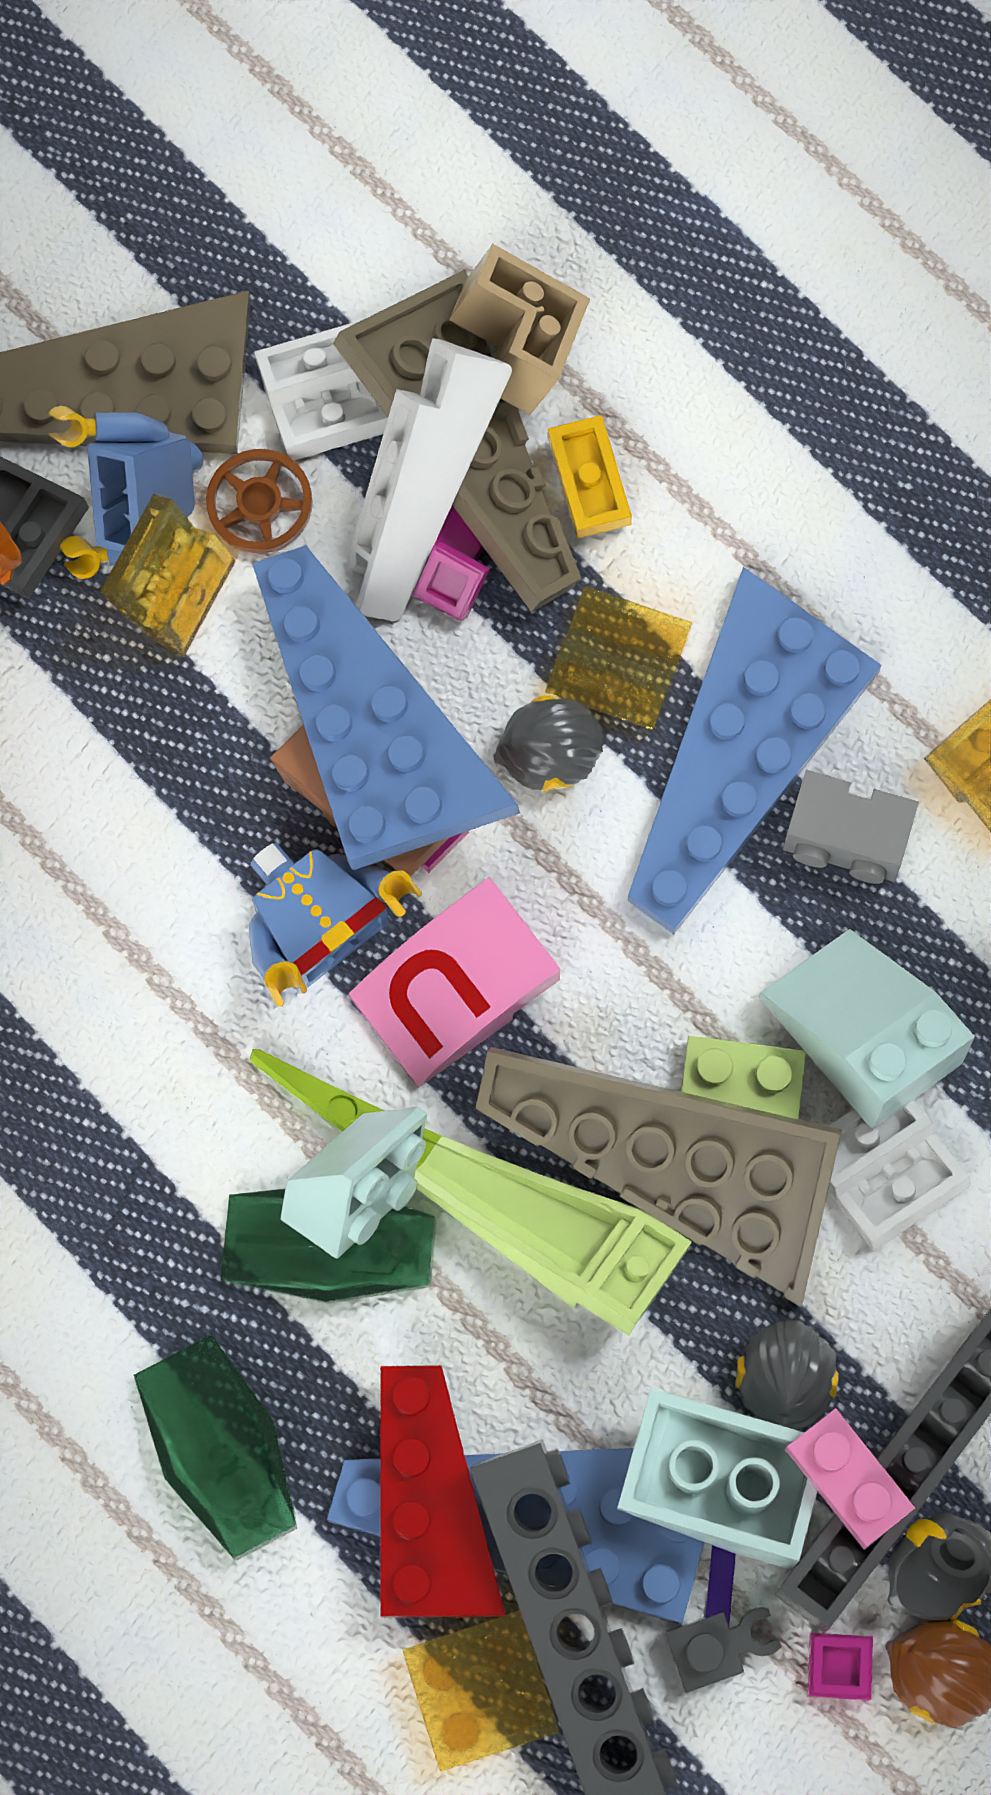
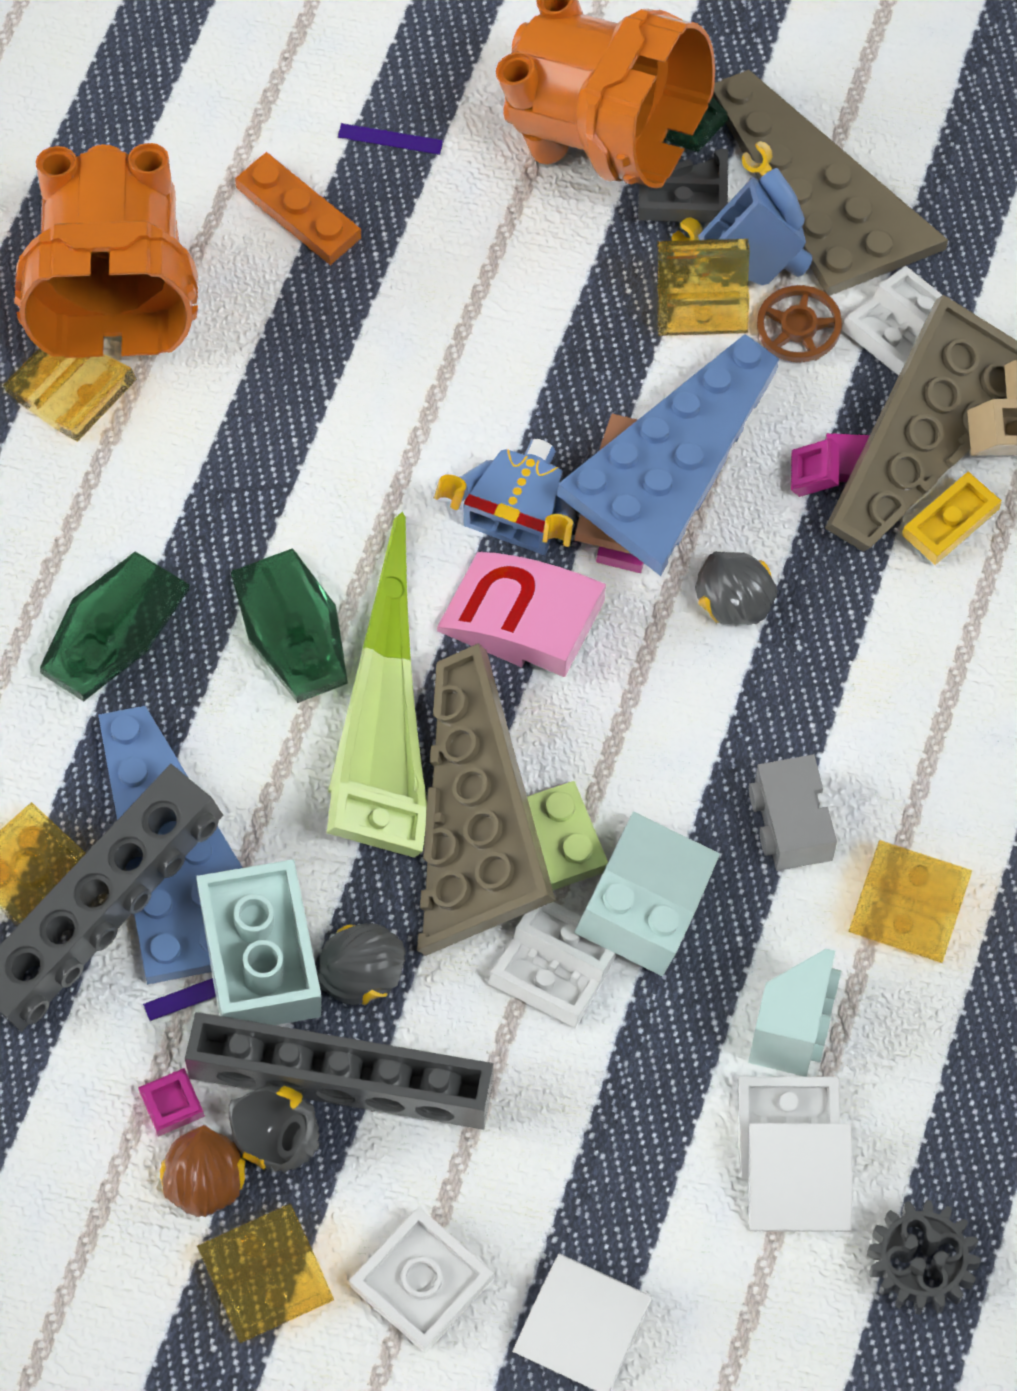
camera: 60 degrees right, 10 degrees down
(356, 1179) = (336, 604): light aqua slope -> none
(420, 472) = (874, 399): white wedge -> none
(429, 1515) = (111, 776): red wing -> none
(619, 657) = (829, 605): clear yellow slope -> none
(710, 1650) = (139, 1008): dark grey plate -> none
(758, 720) = (852, 717): medium blue wing -> none
(849, 1478) = (298, 1017): bright pink plate -> none

